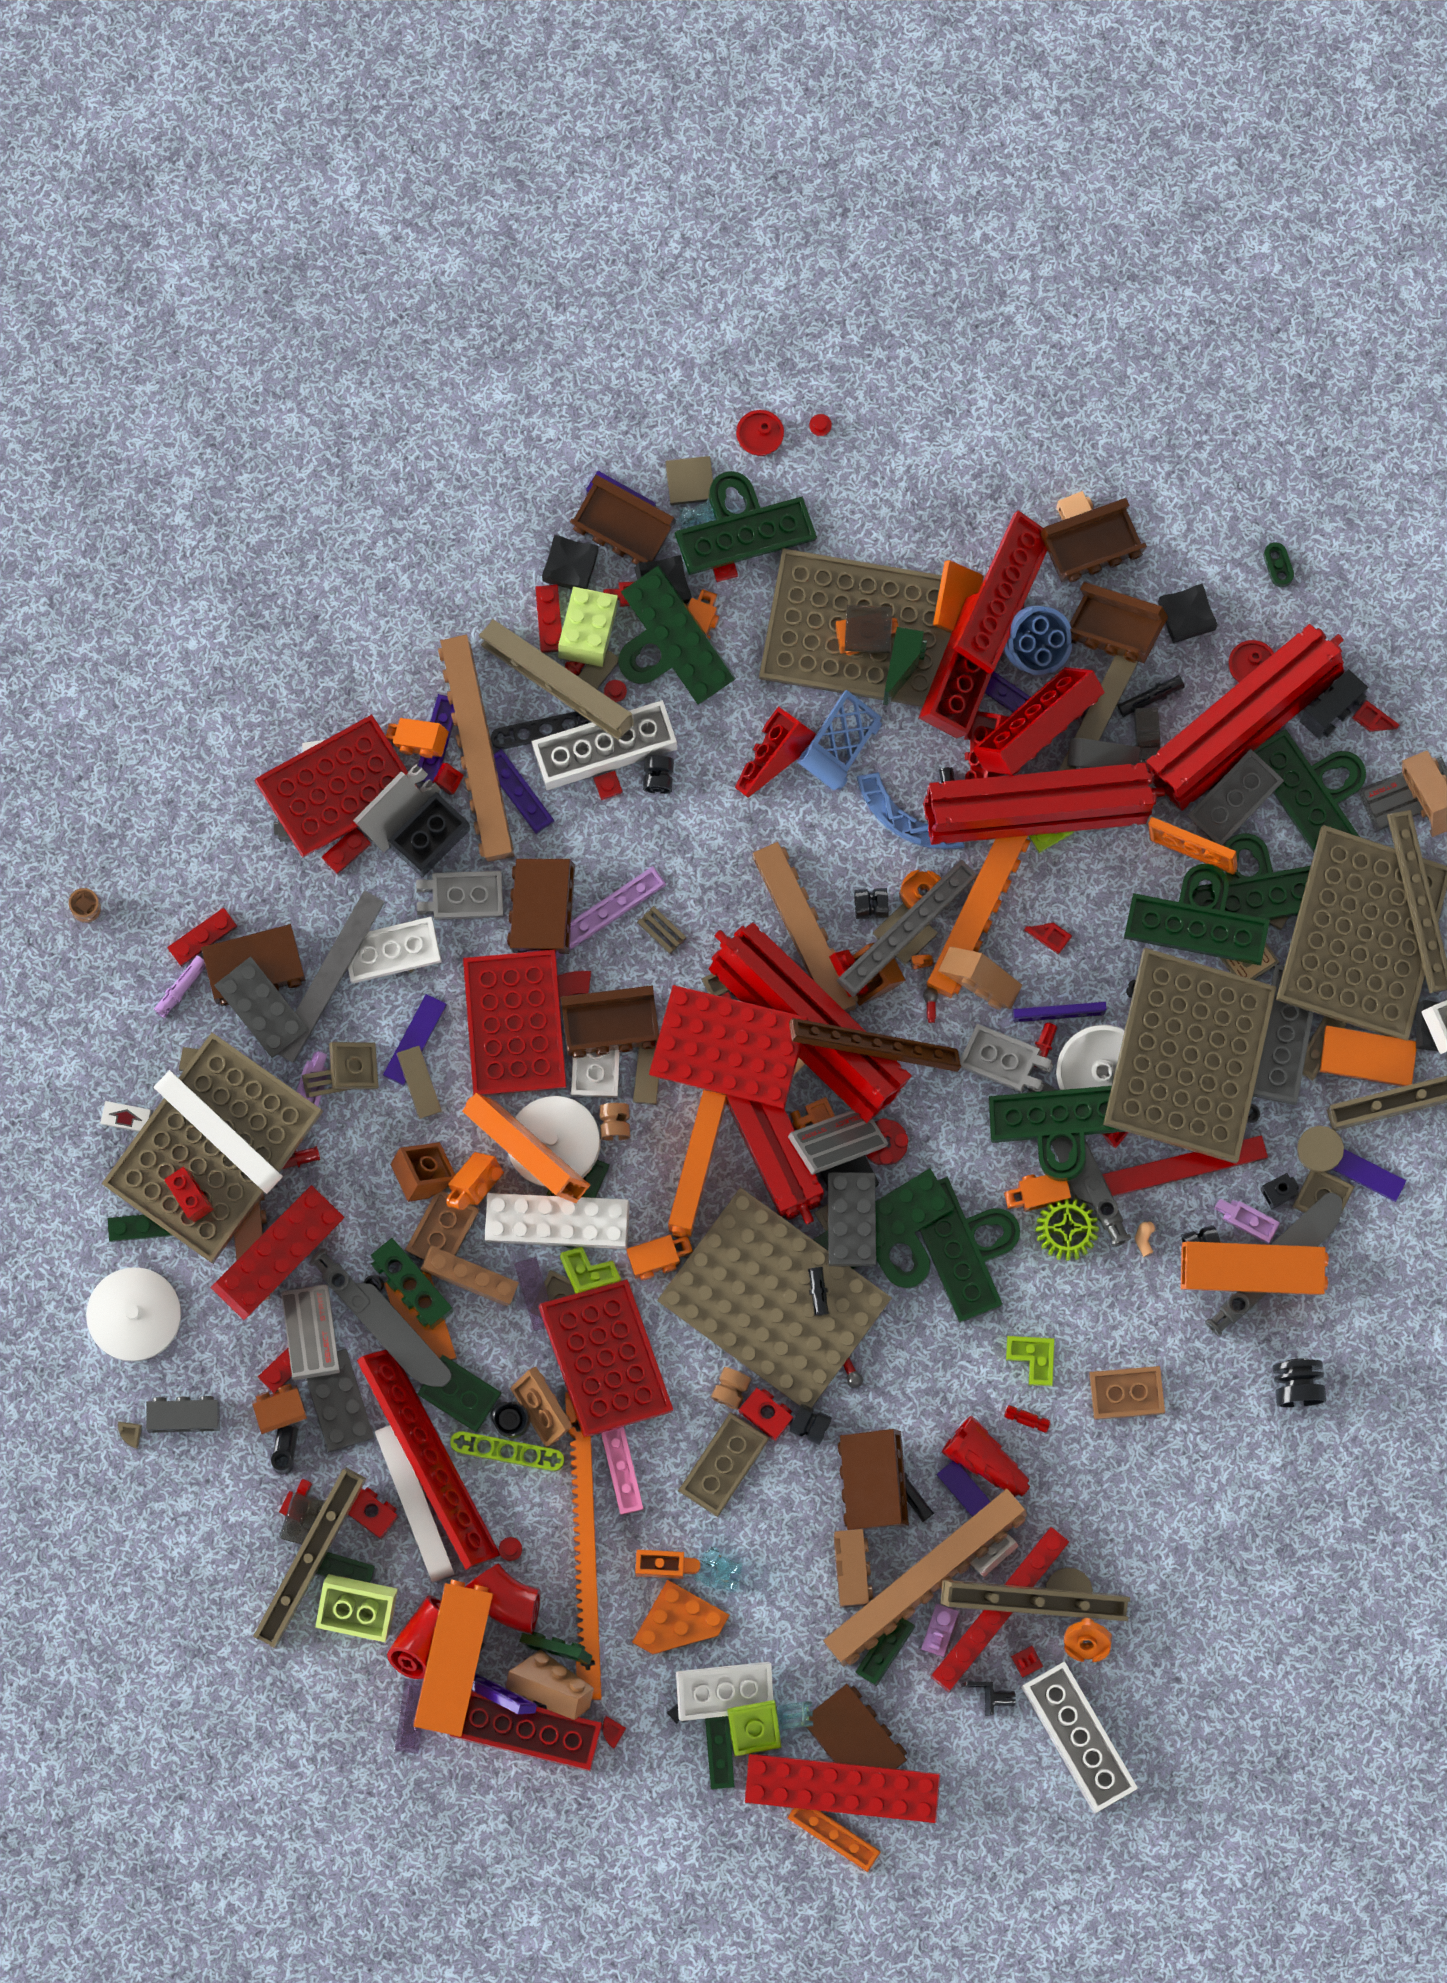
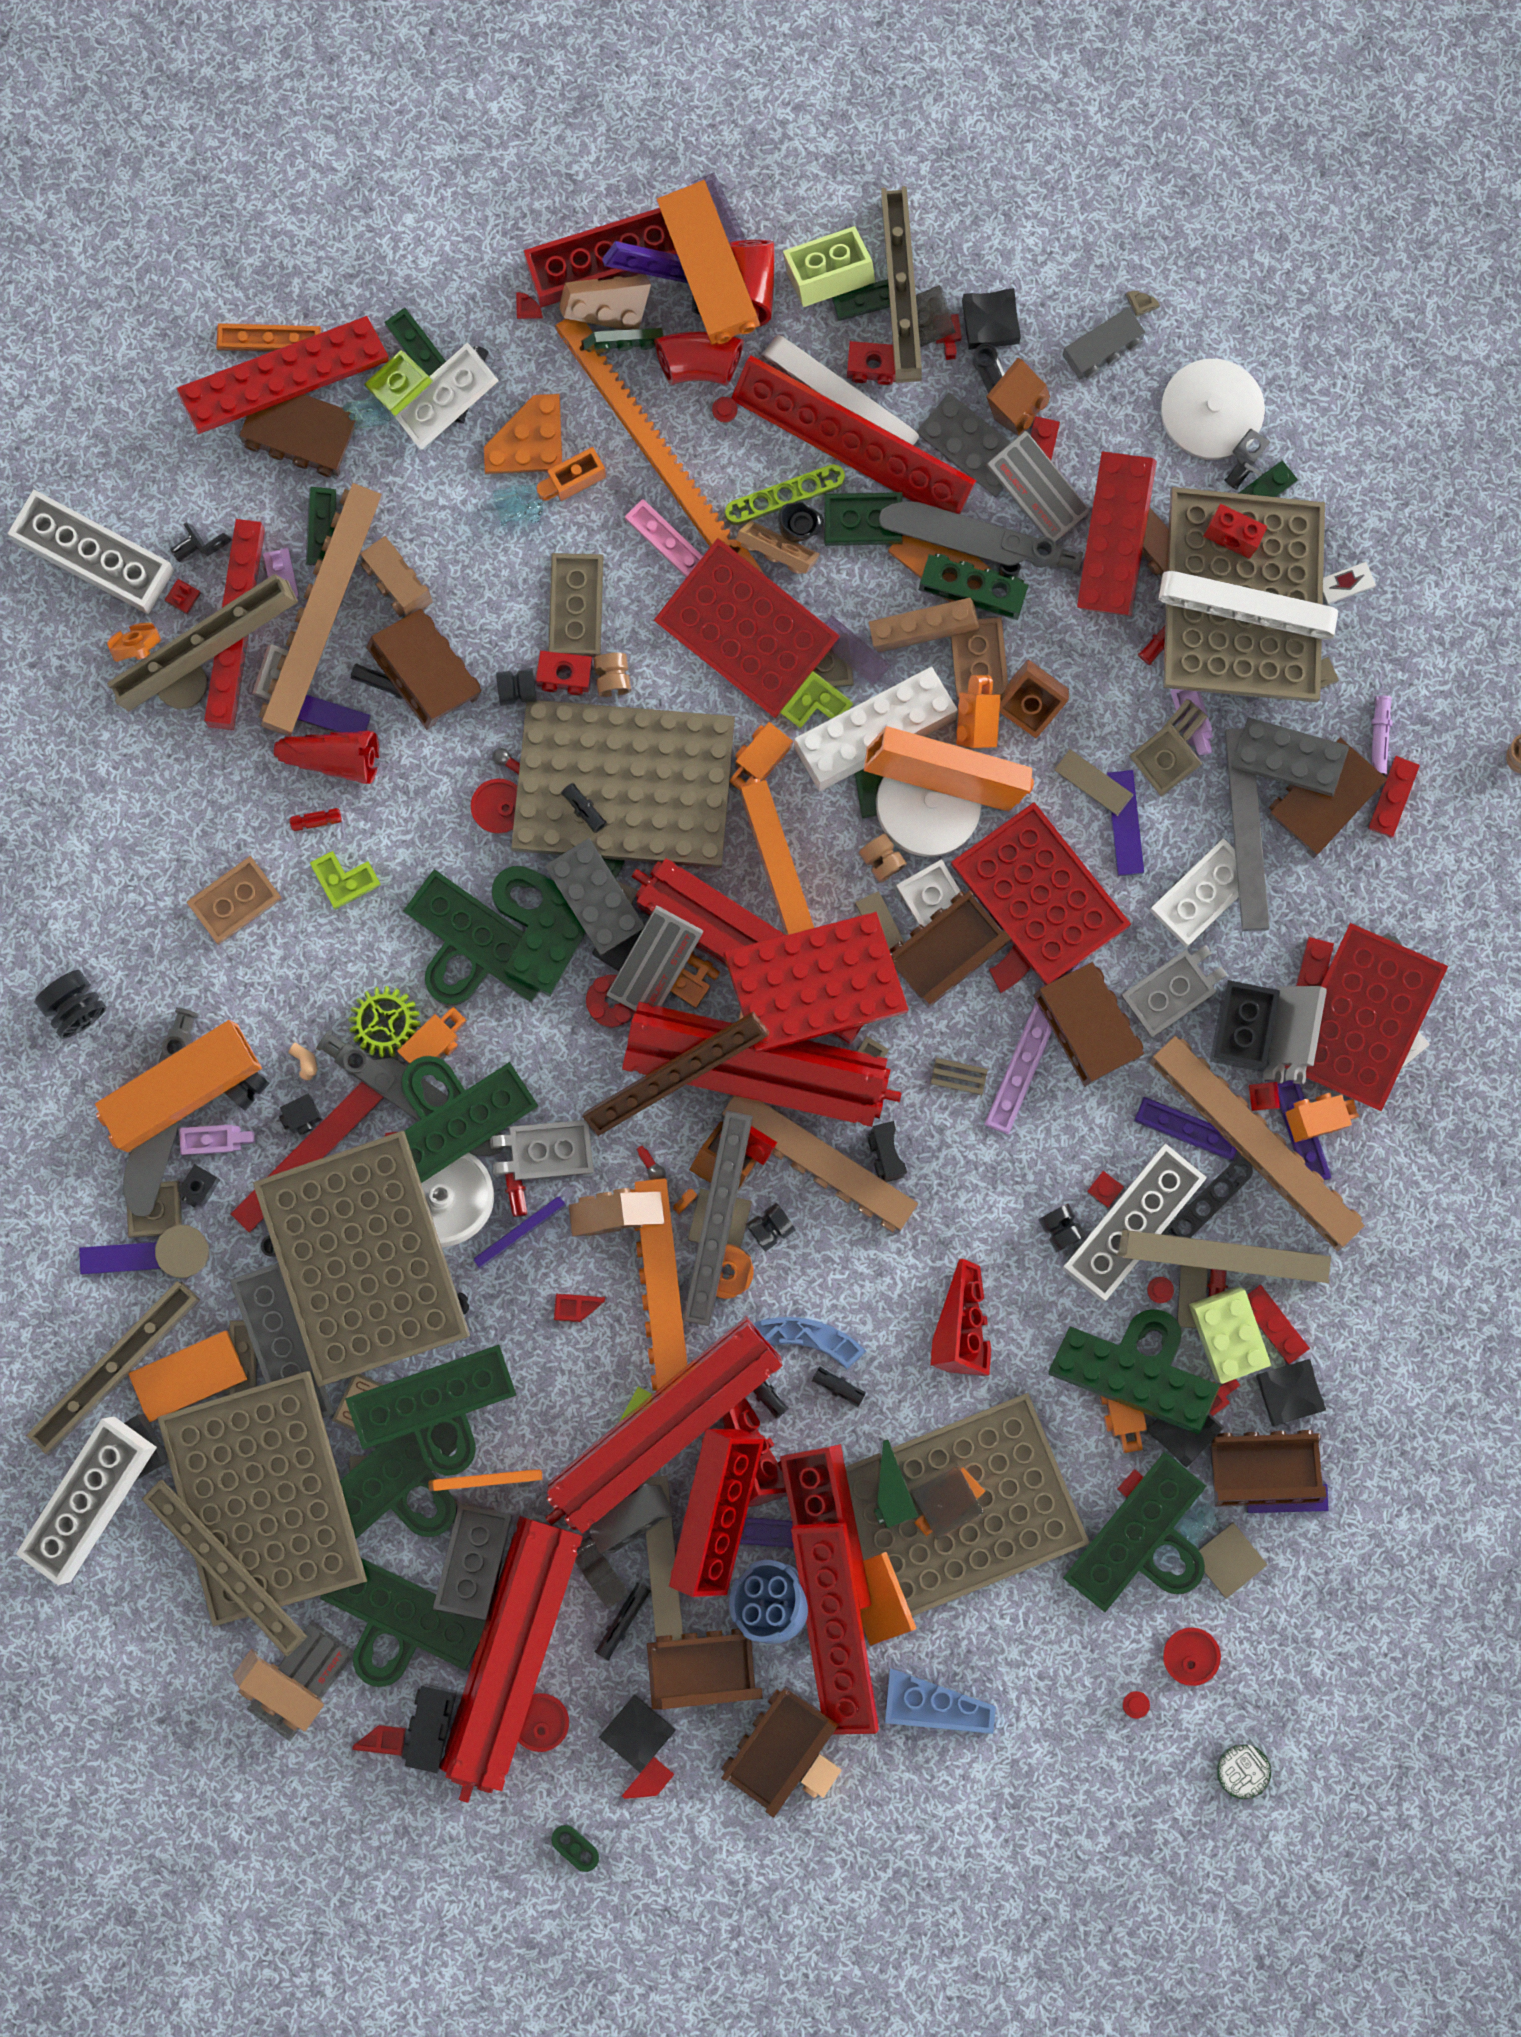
camera: 145 degrees right, 5 degrees up
(137, 1255) = (1246, 459): none -> black bracket
(256, 1490) = (991, 318): none -> black brick
(751, 908) = (888, 1162): none -> black brick
(774, 338) = (1243, 1771): none -> tile
(826, 765) = (900, 1339): medium blue piece -> none
(882, 1343) = (495, 805): none -> red piece
(892, 763) = (838, 1386): none -> black pin
(966, 509) = (932, 1706): none -> medium blue wing
(1172, 1197) = (300, 1115): none -> black brick
(1198, 575) = (649, 1781): none -> red tile

